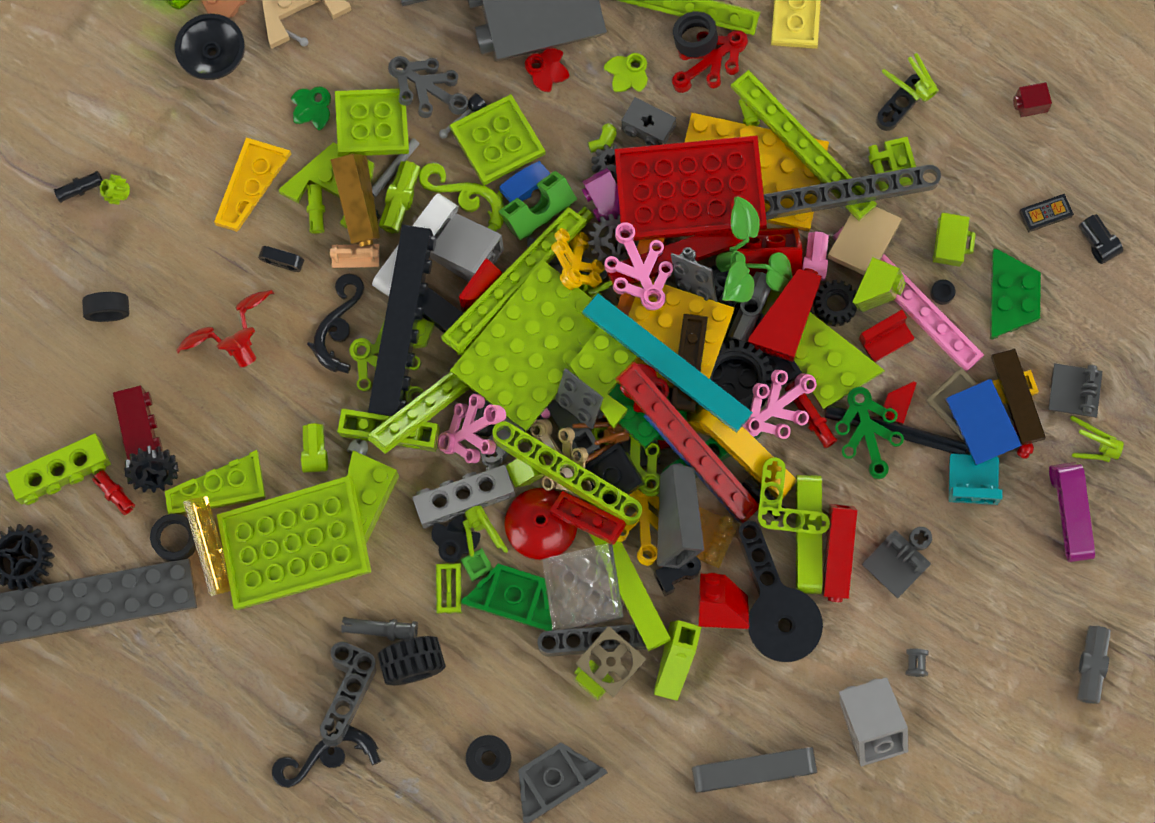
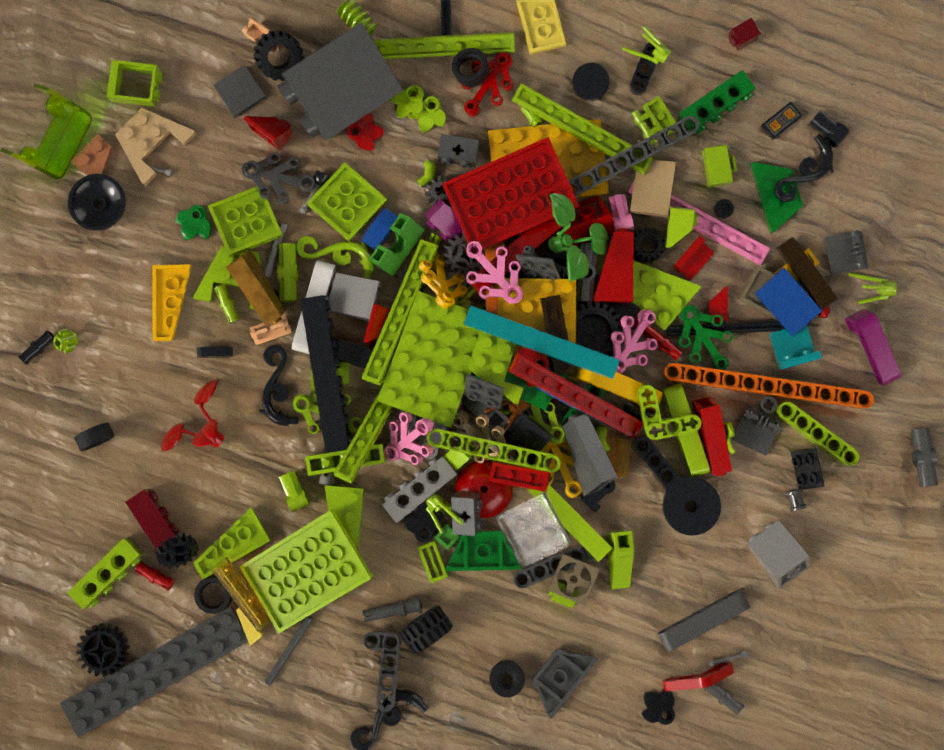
camera: 20 degrees left, 10 degrees up
(202, 598) = (251, 633): none -> light yellow piece
(238, 635) = (288, 650): none -> dark grey bar
(438, 30) = (270, 129): none -> red slope
(507, 529) = (472, 504): none -> dark grey brick
(610, 50) = (407, 103): none -> lime plate
(705, 503) = (602, 433): none -> lime arm
(721, 603) = (640, 506): red slope -> none
(832, 97) = (590, 81): none -> black tile
(859, 554) = (729, 432): none -> lime plate
(939, 514) = (776, 386): none -> orange beam
(942, 628) = (807, 469): none -> black hinge
(980, 596) = (825, 435): none -> lime beam
(1006, 151) = (739, 83): none -> green brick
(1056, 284) = (804, 167): none -> black plant

